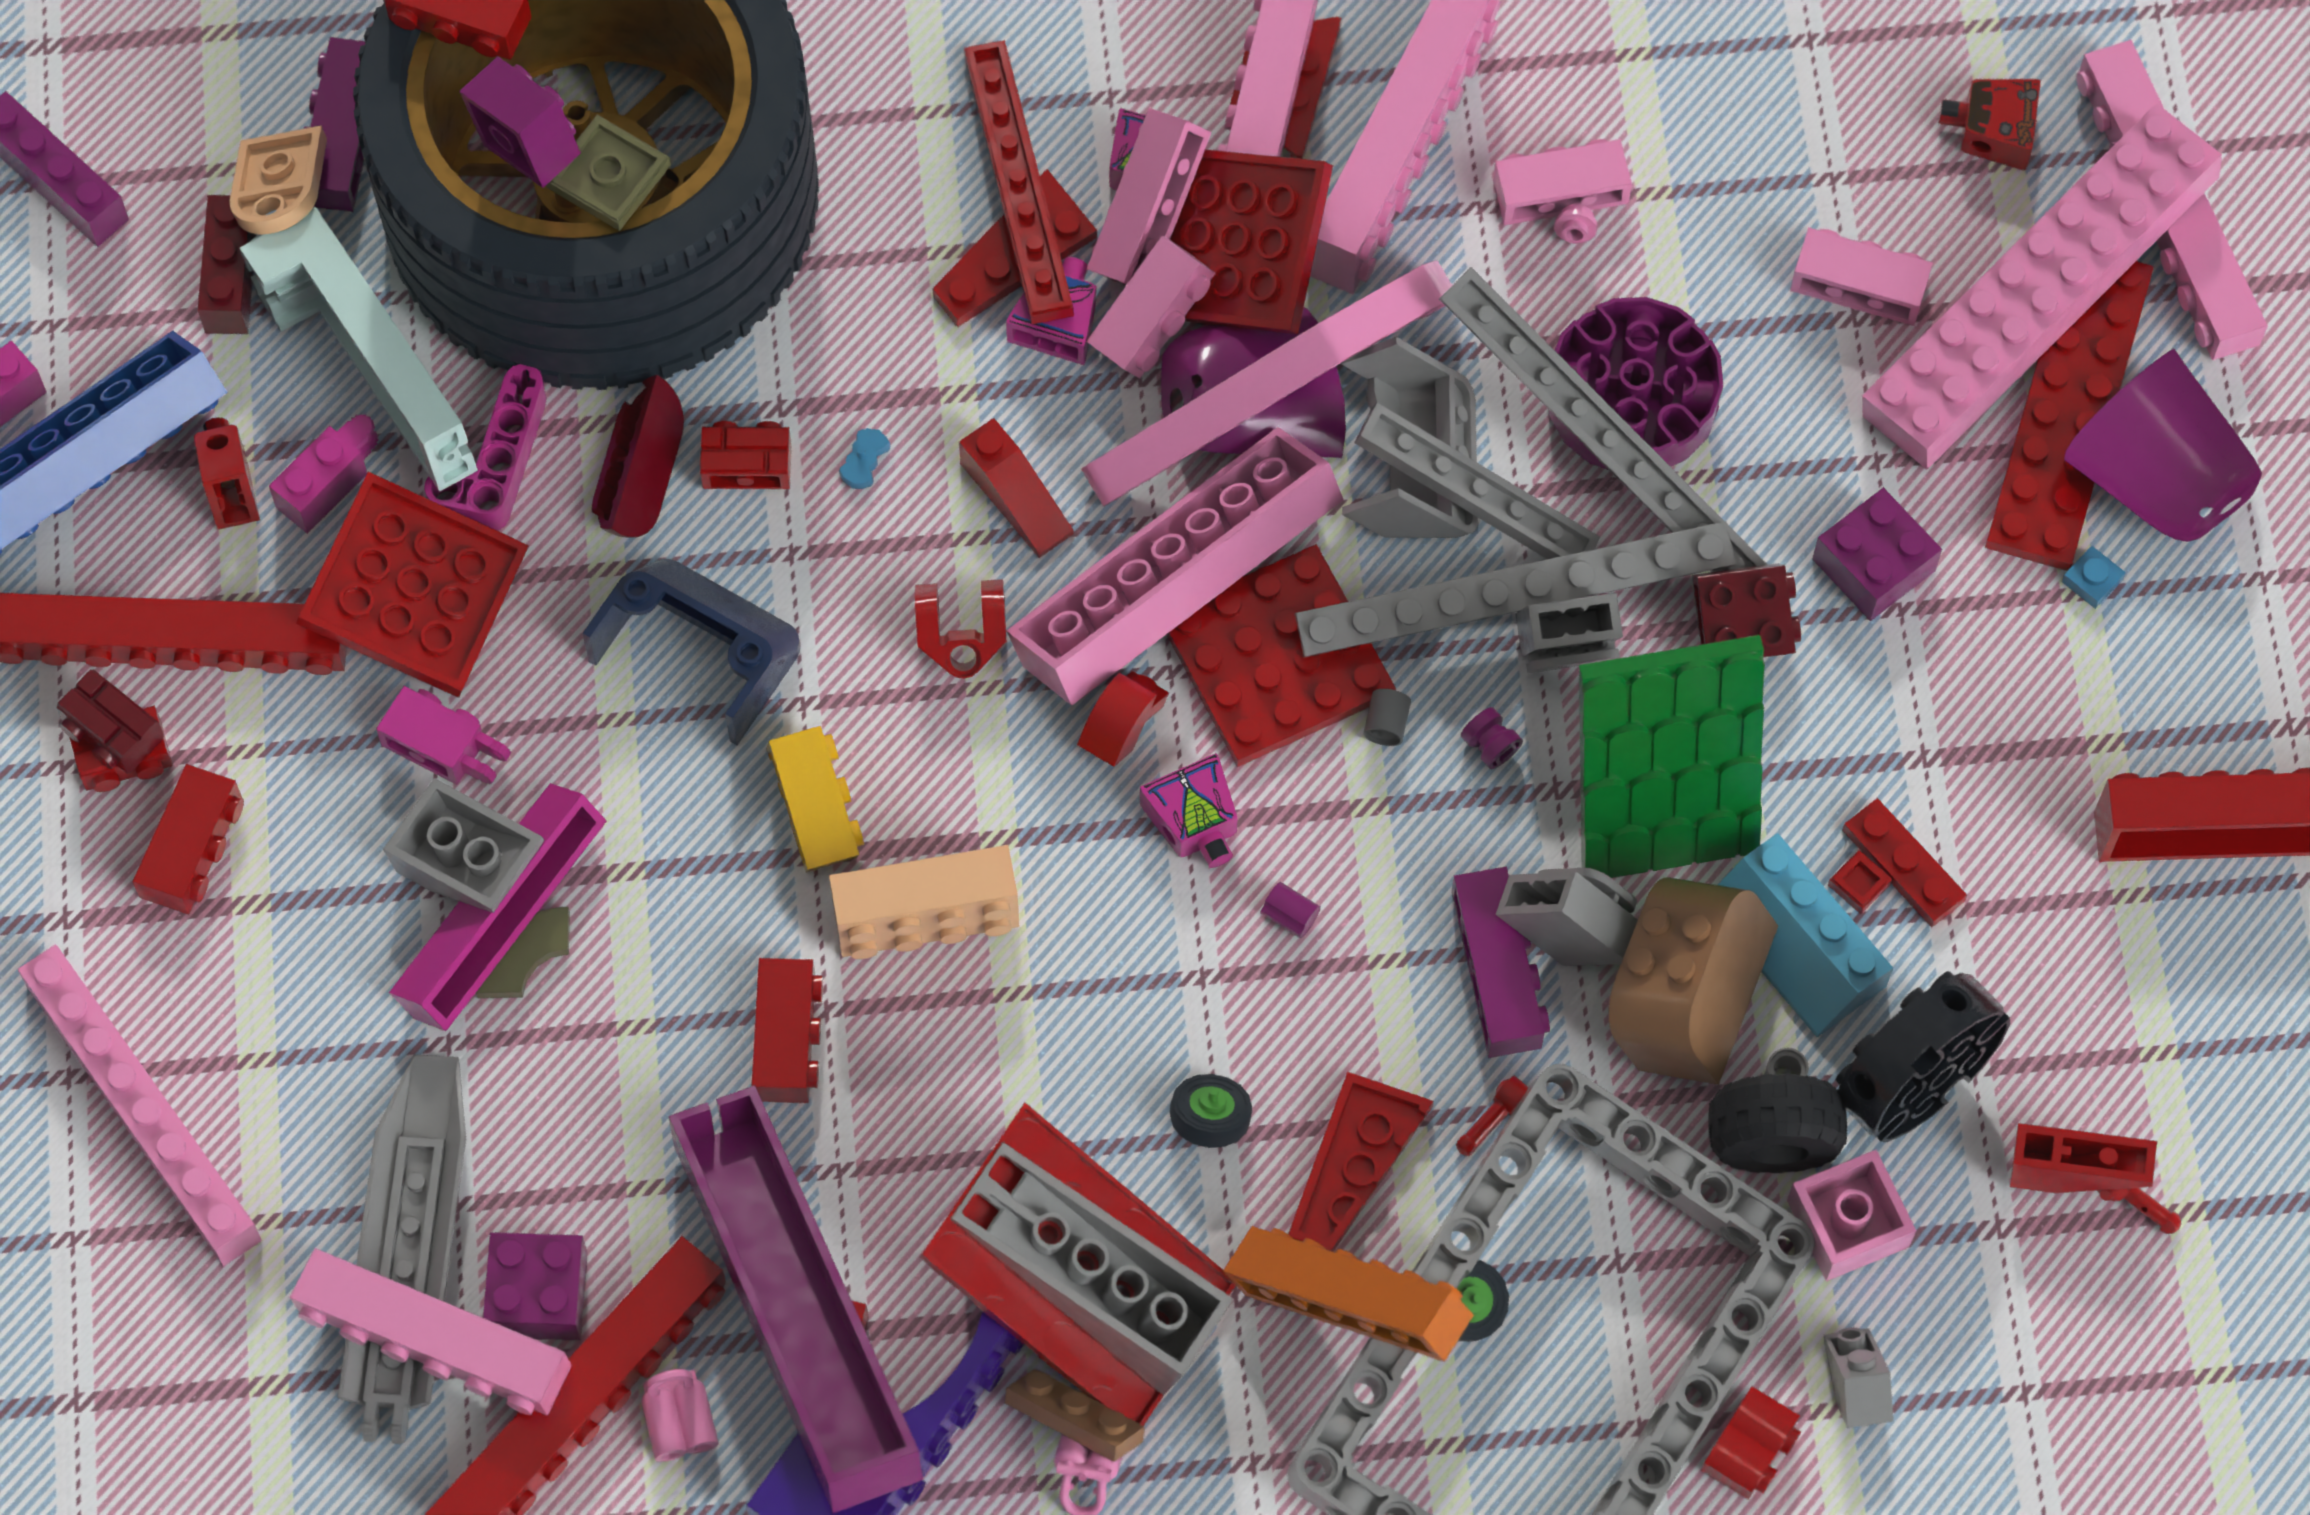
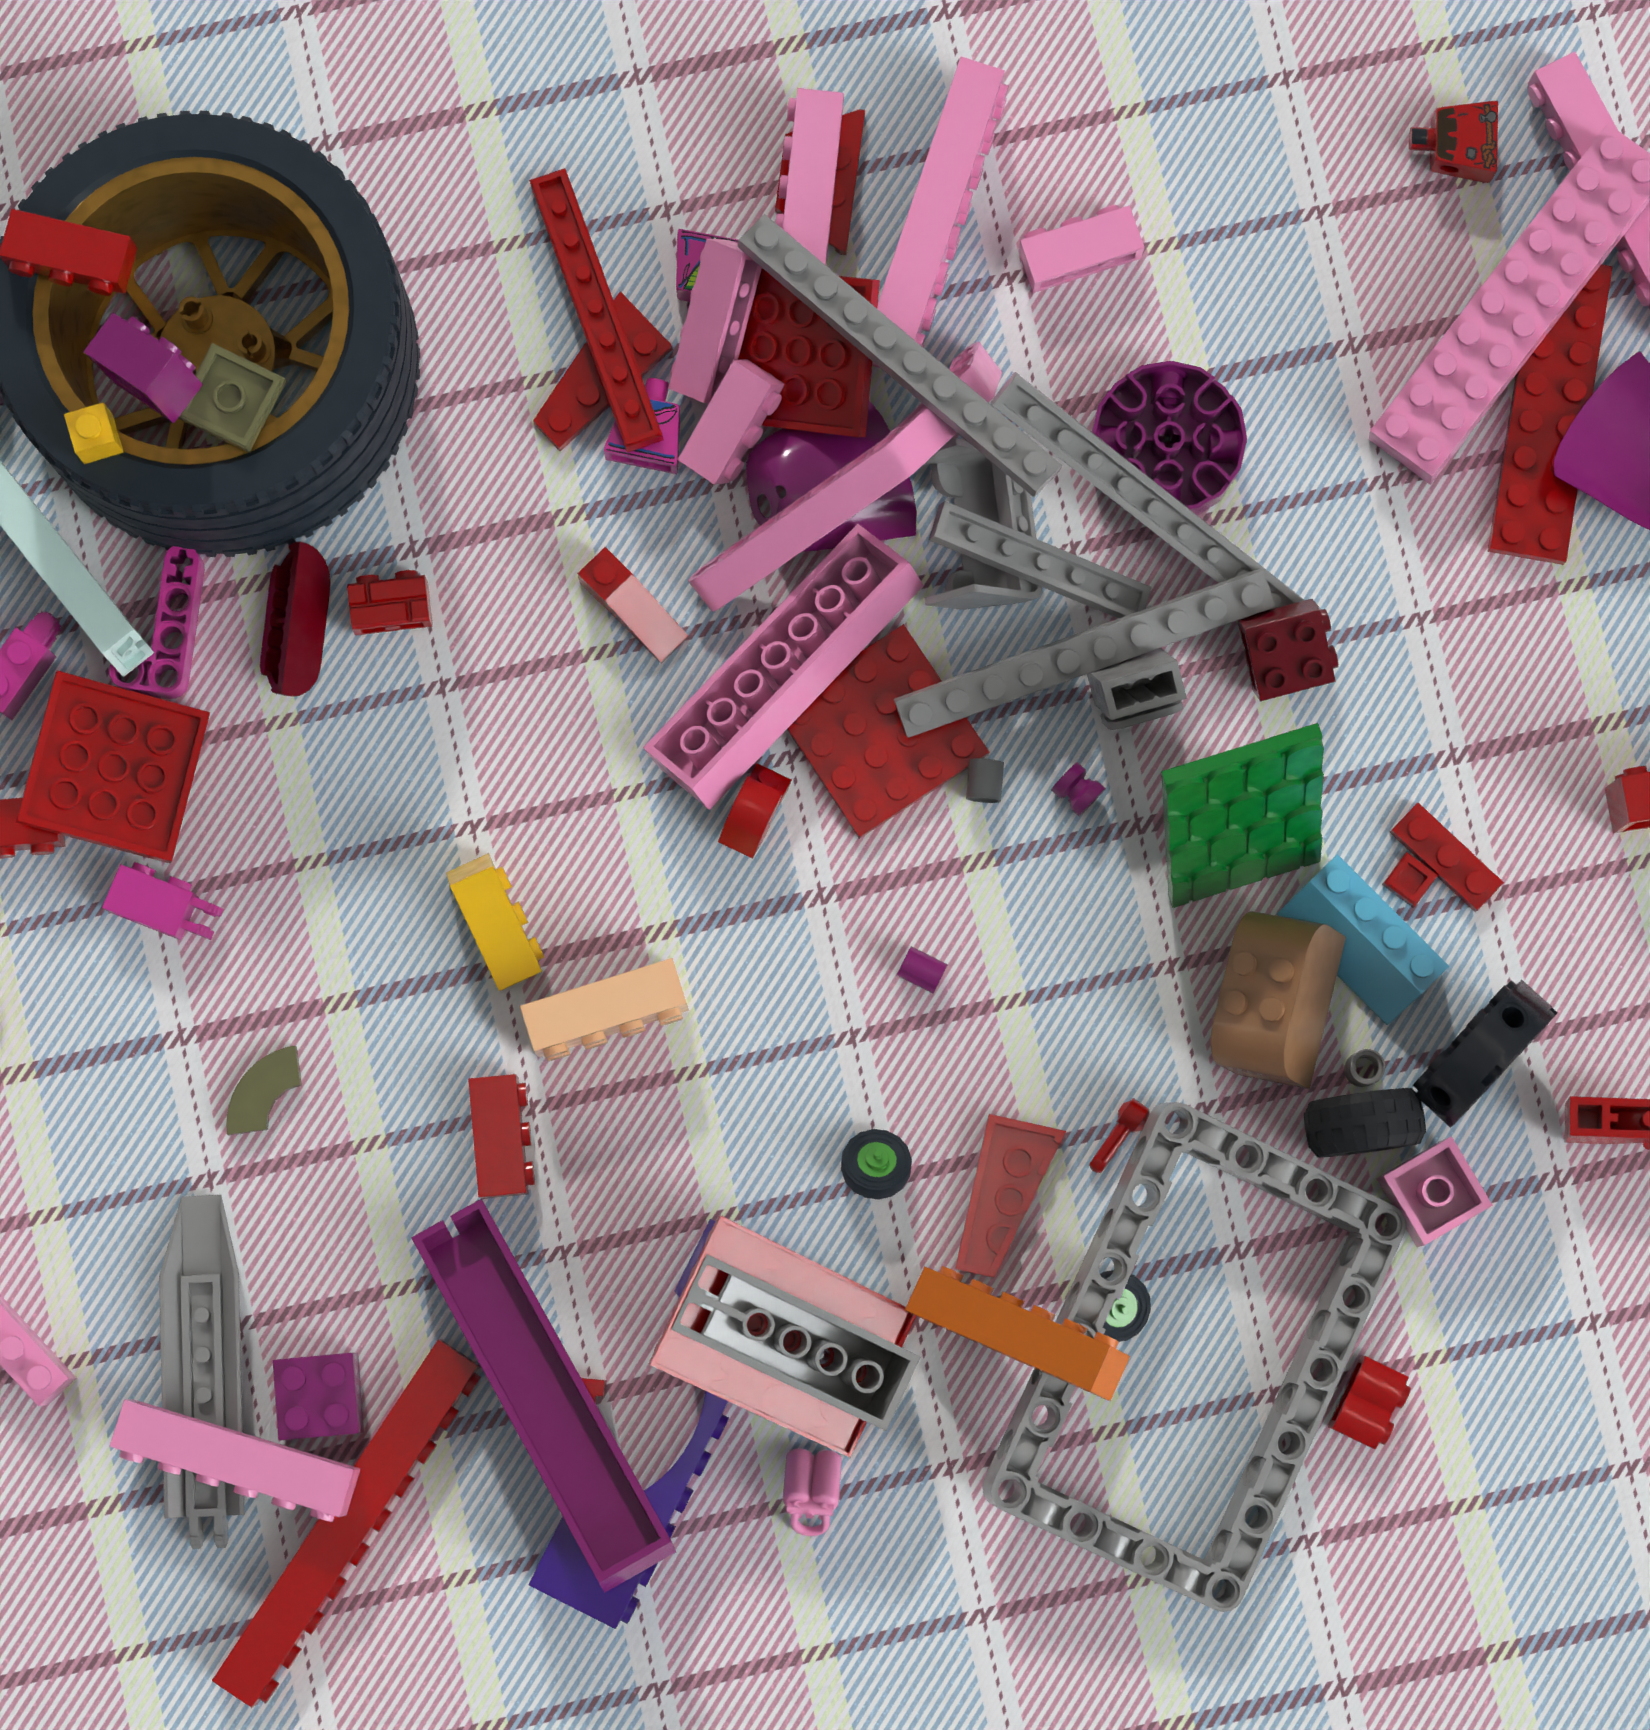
camera: 10 degrees left, 15 degrees up
(455, 186) = (93, 433): none -> yellow brick
(461, 848) = (196, 1011): light grey slope -> none
(476, 940) = (234, 1057): dark pink brick -> none
(678, 1415) = (456, 1491): bright pink piece -> none
(759, 642) = (430, 775): dark blue windscreen -> none
(863, 458) = (494, 590): dark azure piece -> none
(983, 644) = (623, 758): red piece -> none
(1074, 1415) = (795, 1456): medium nougat plate -> none
(1193, 810) = (828, 889): dark pink torso -> none
(1345, 240) = (899, 355): none -> light grey plate
(1498, 966) = (1107, 995): magenta brick -> none
(1571, 914) = (1168, 955): light grey brick -> none
(1576, 224) = (1097, 288): bright pink plate -> none
(1859, 1377) = (1454, 1332): light grey slope -> none
(1861, 276) = (1356, 307): bright pink brick -> none
(1876, 554) = (1395, 575): magenta brick -> none
(2093, 577) = (1585, 569): dark azure plate -> none

